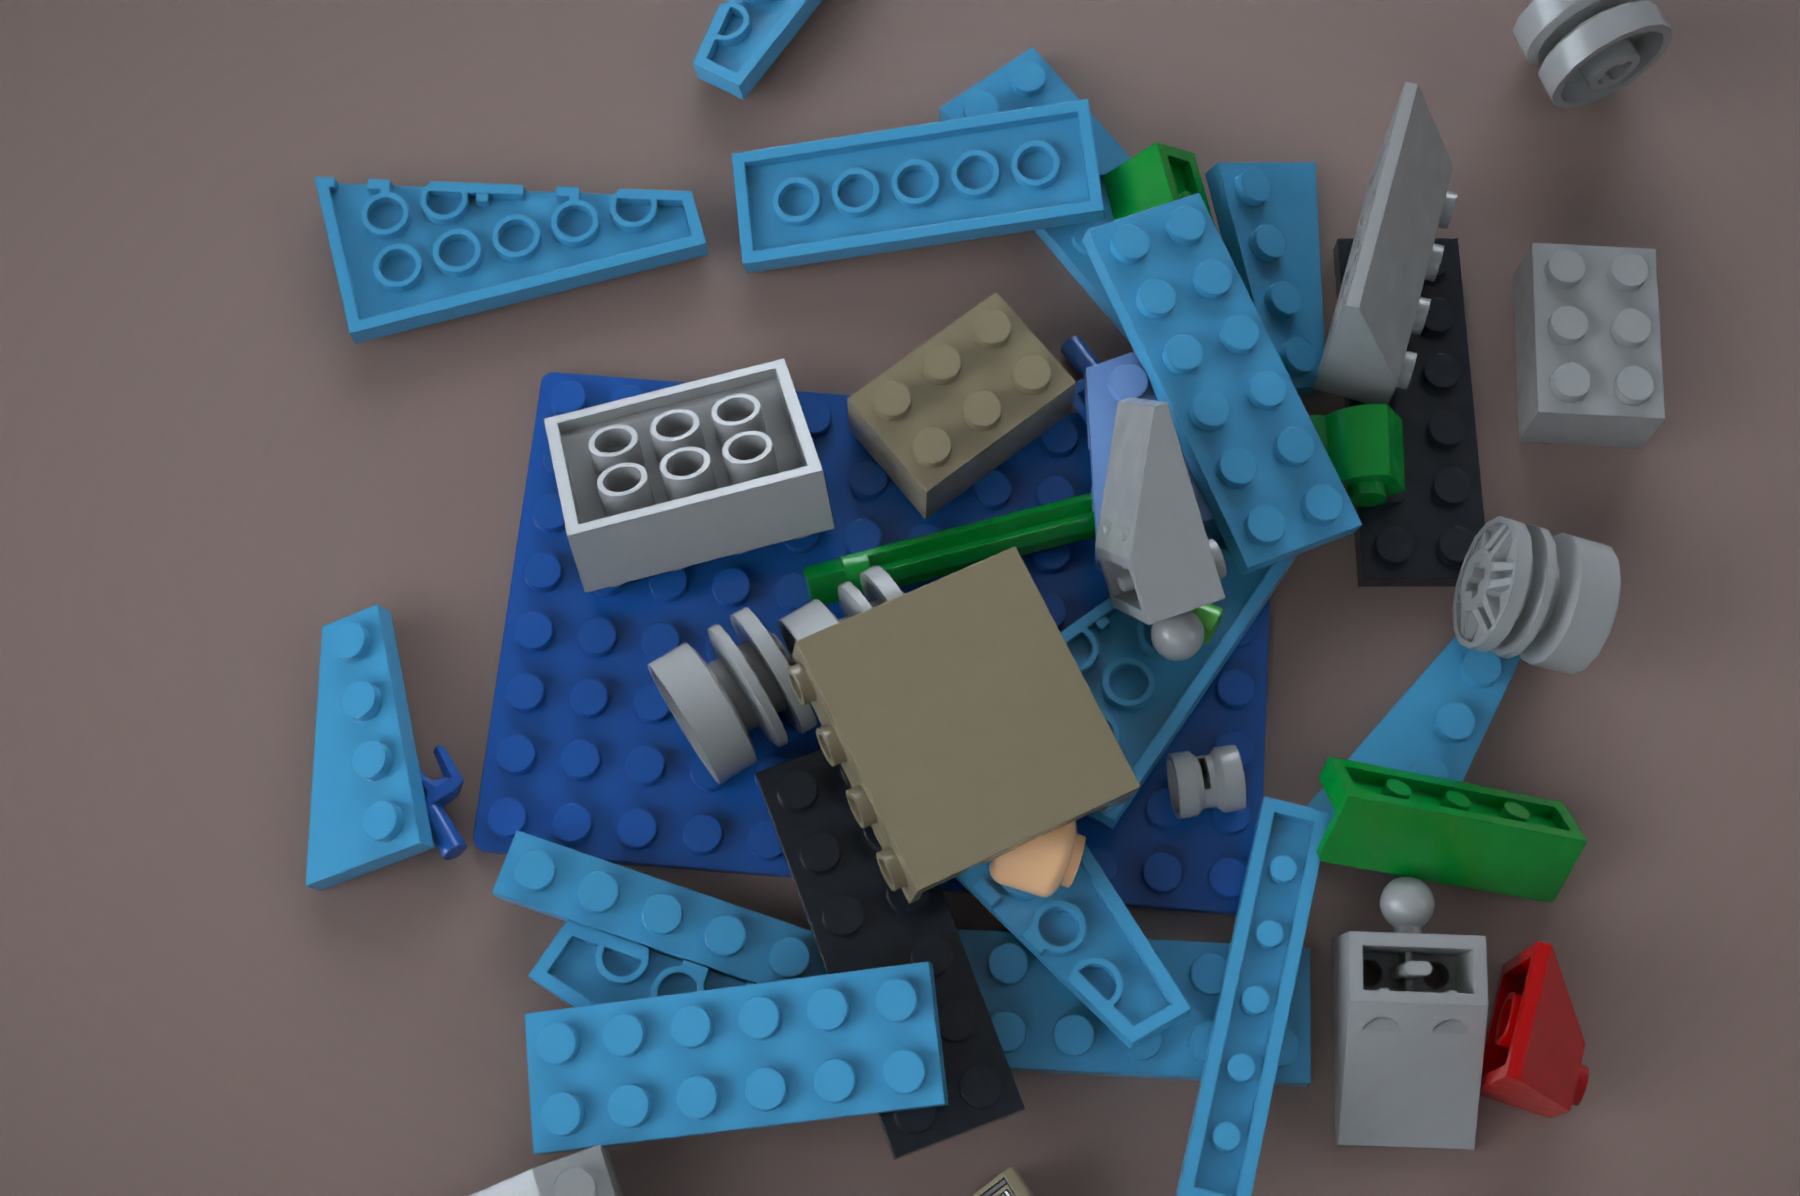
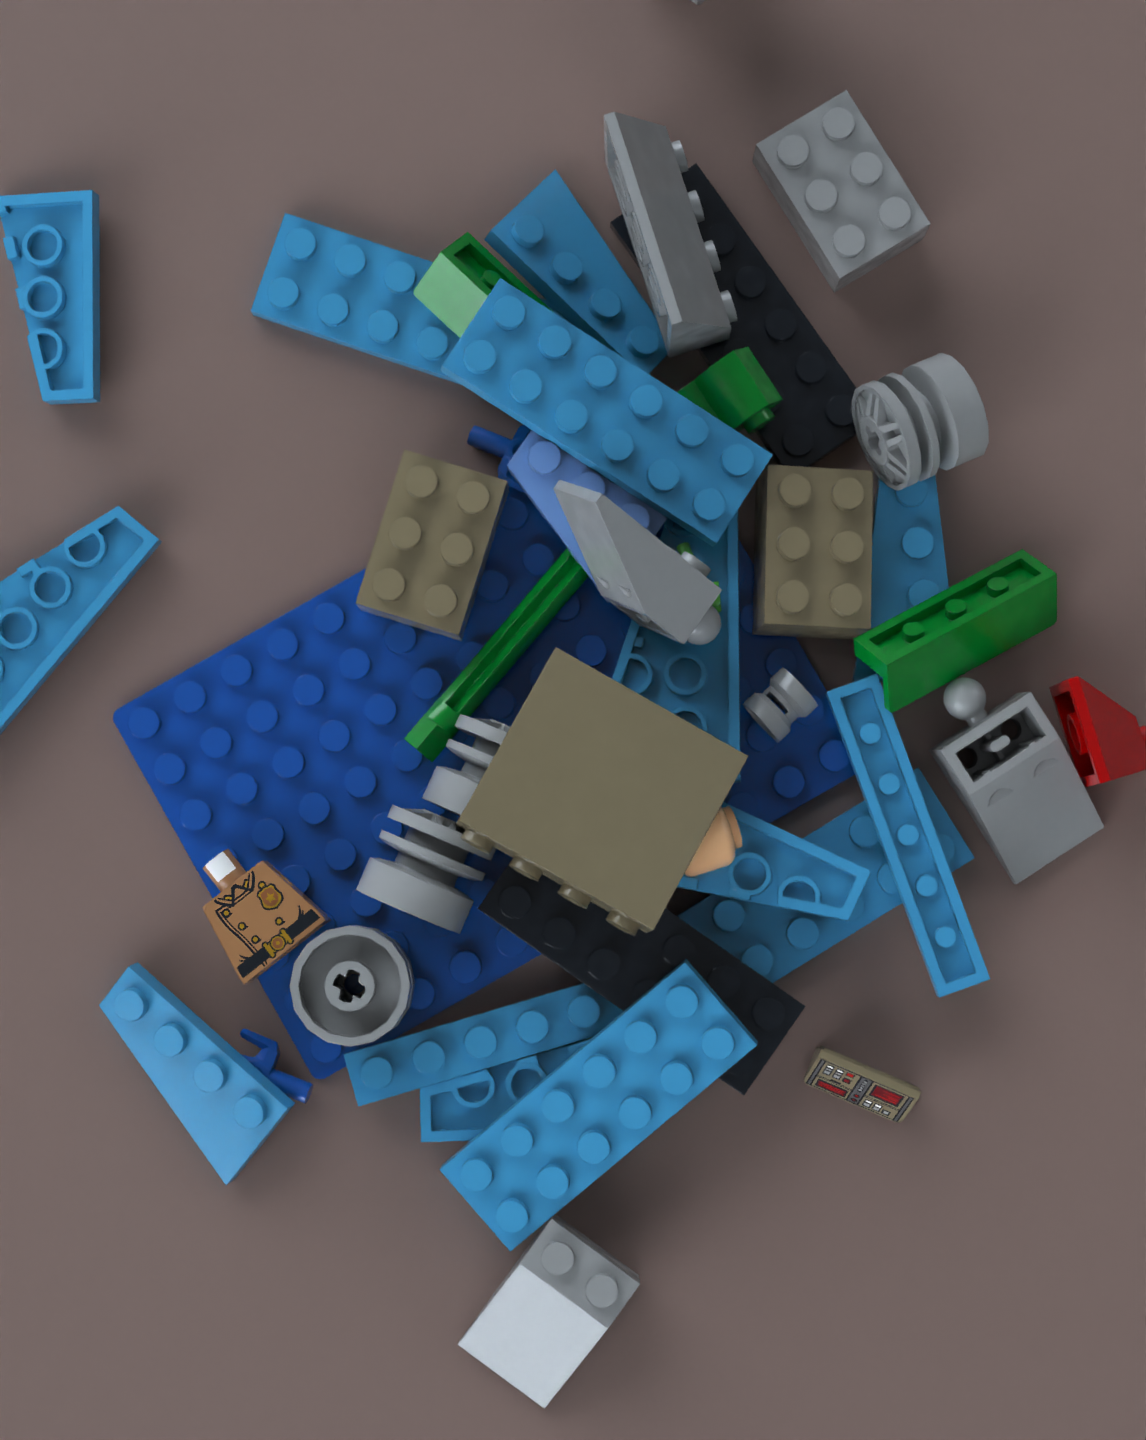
camera: 30 degrees left, 15 degrees up
(535, 638) = (258, 914): none -> medium nougat torso
(568, 725) = (320, 989): none -> light grey wheel
(687, 475) = (273, 726): light grey slope -> none
(917, 186) = (281, 392): dark azure plate -> none
(1339, 655) = (813, 552): none -> dark tan brick

